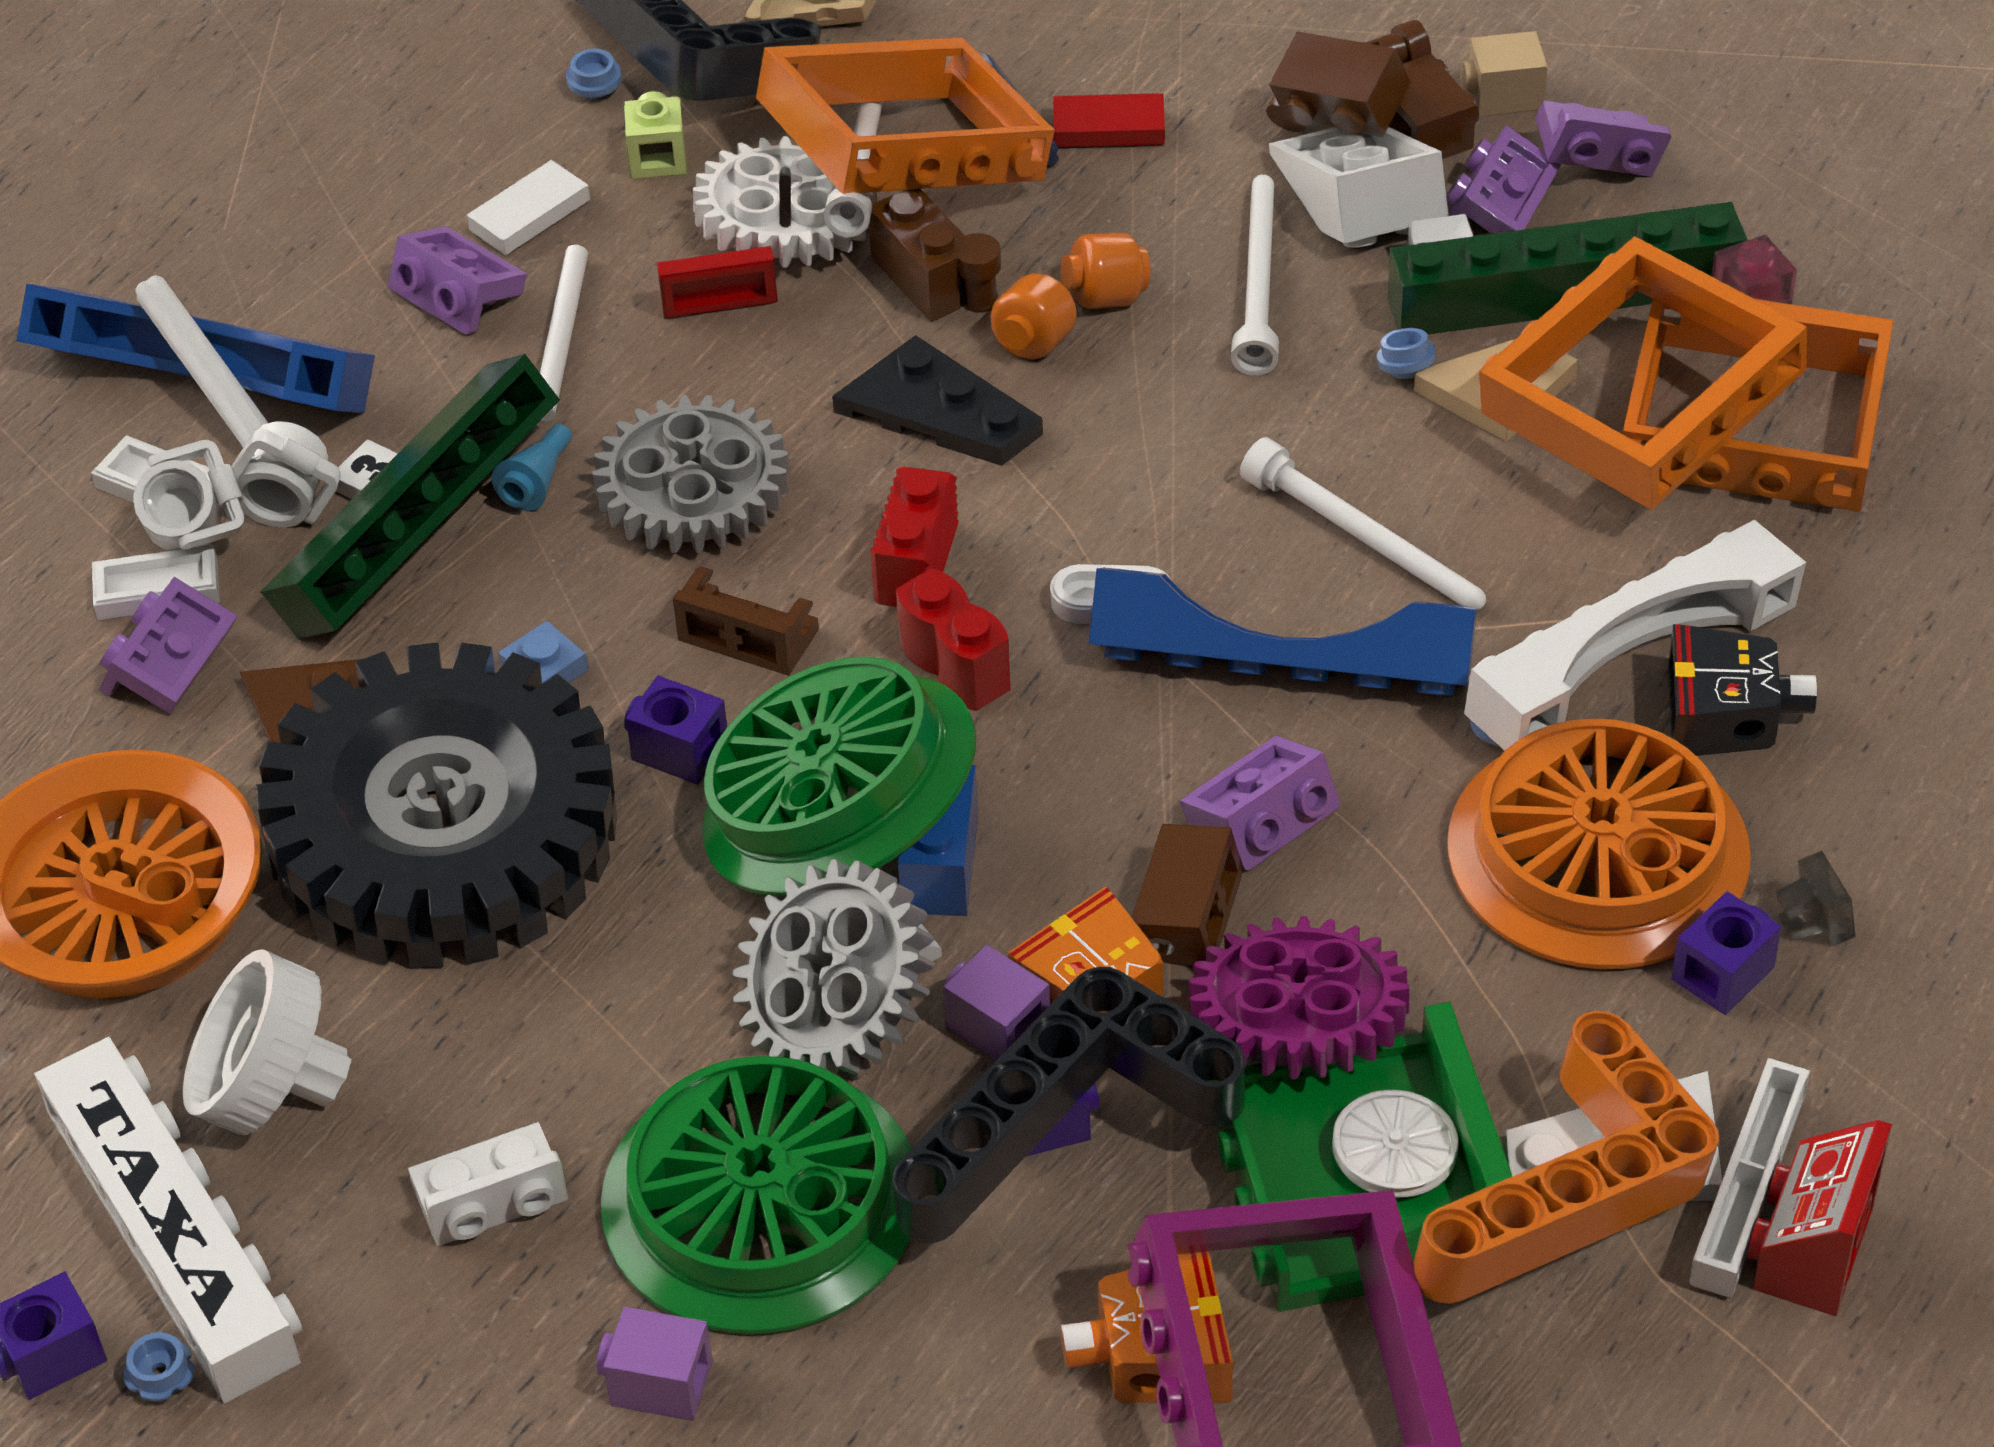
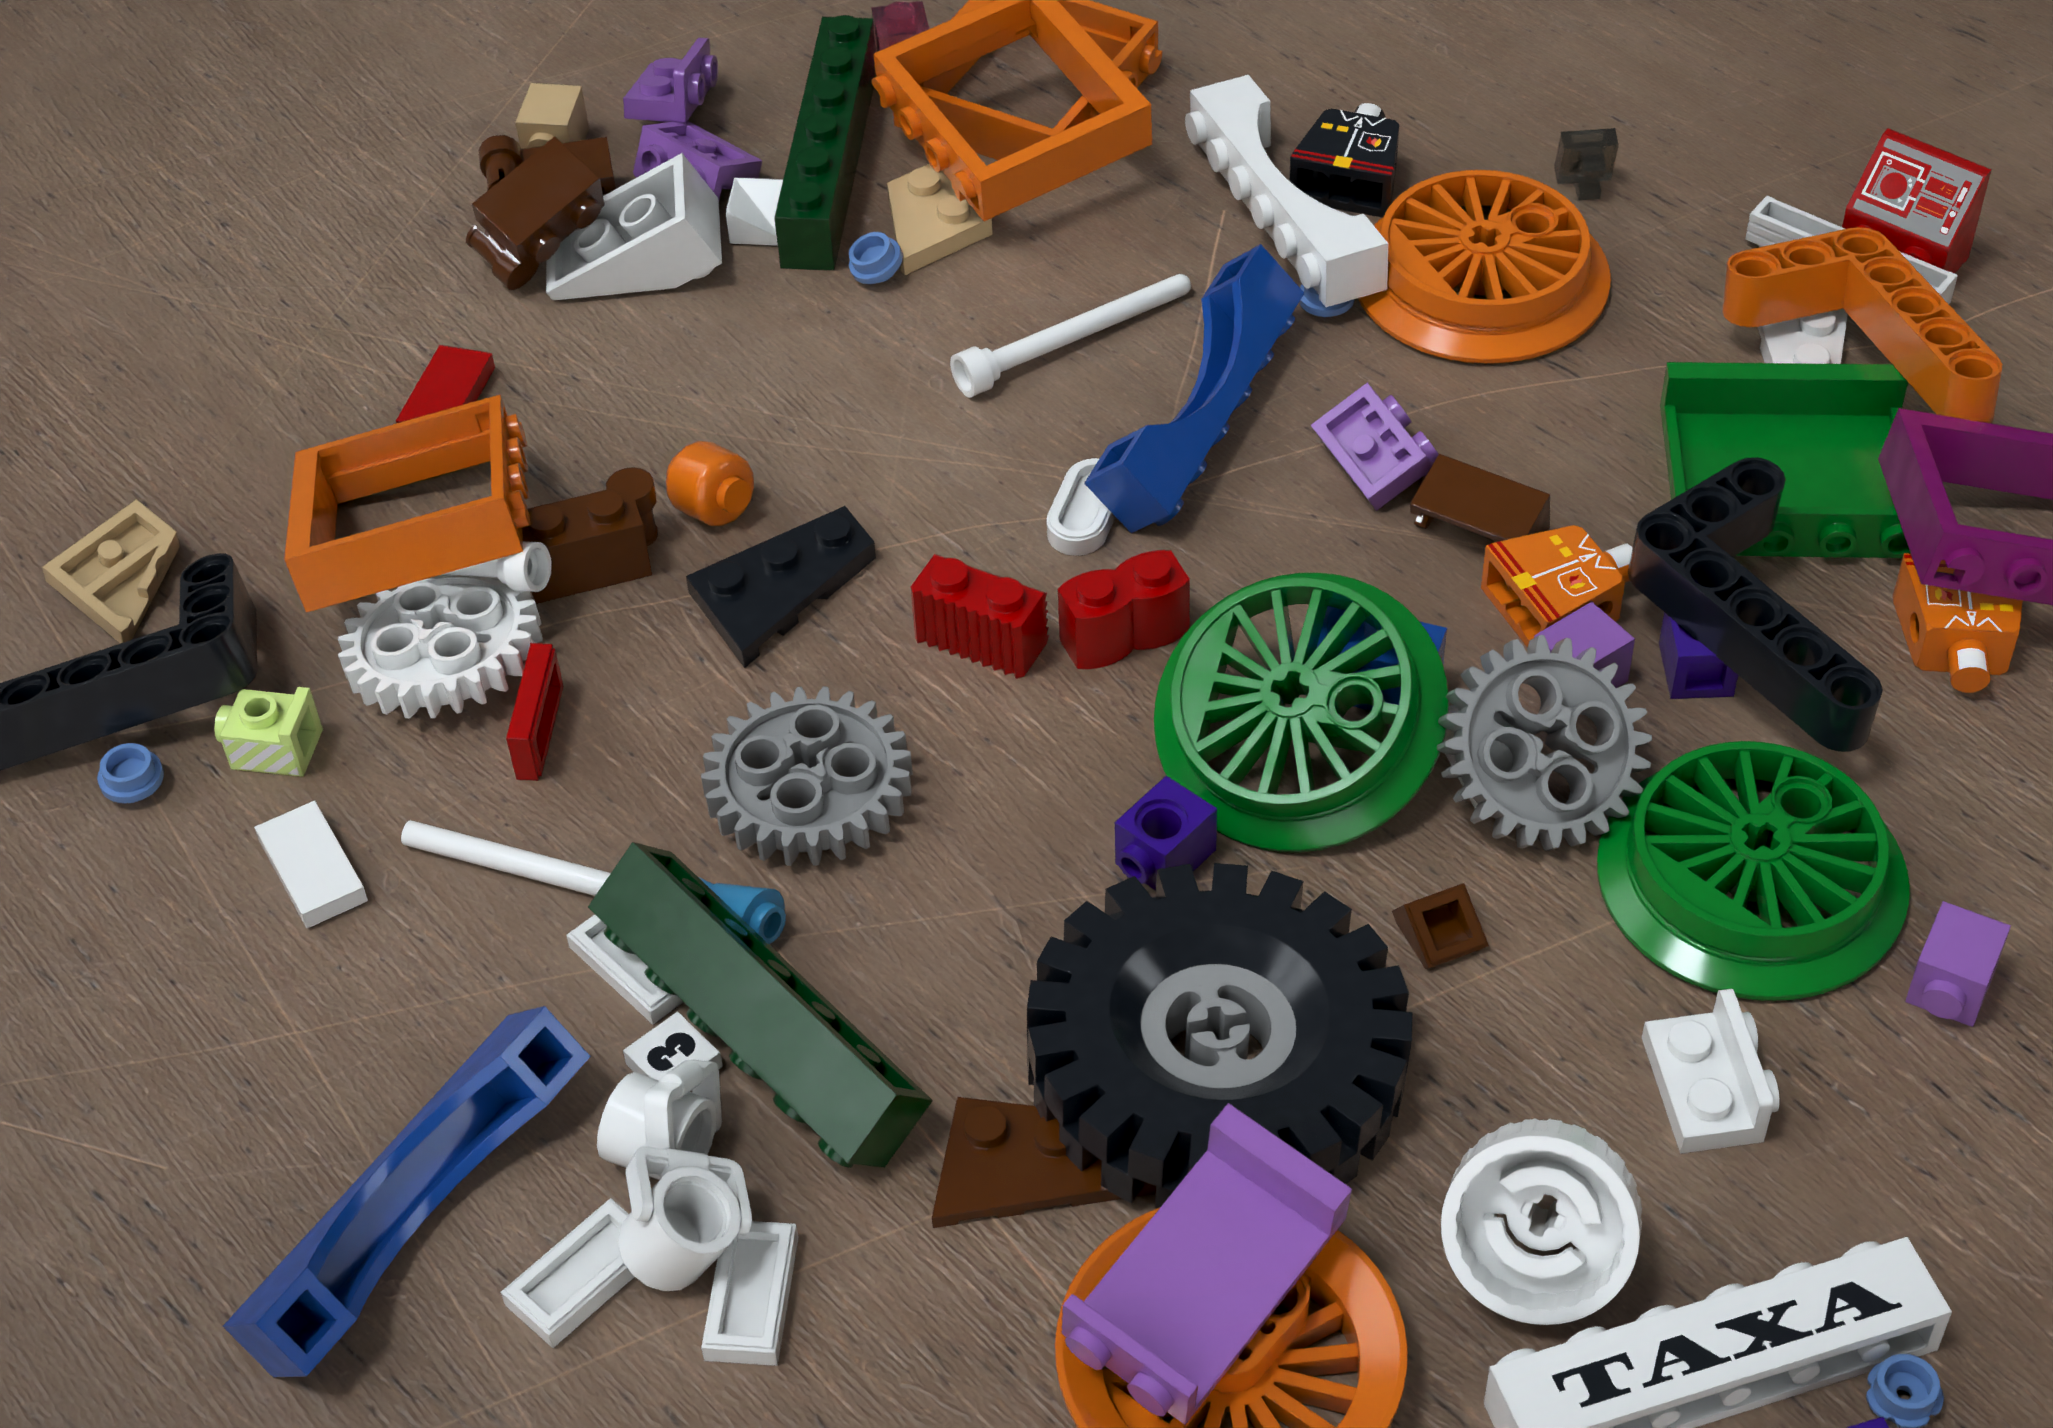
camera: 75 degrees left, 0 degrees up
(147, 812) = (1207, 1267): none -> medium lavender panel
(169, 645) = (873, 1283): medium lavender bracket -> none
(200, 358) = (458, 1174): white axle -> none
(451, 276) = (399, 940): medium lavender bracket -> none
(551, 650) = (1010, 942): medium blue plate -> none
(633, 958) = (1441, 926): none -> reddish brown slope
(742, 626) = (1032, 768): reddish brown hinge -> none
(1106, 270) = (670, 418): orange head -> none
(1255, 344) = (816, 349): white piece -> none
(1302, 995) = (1584, 451): magenta gear -> none
(1395, 1143) = (1786, 435): white wheel -> none
(1726, 952) = (1628, 219): dark purple brick -> none

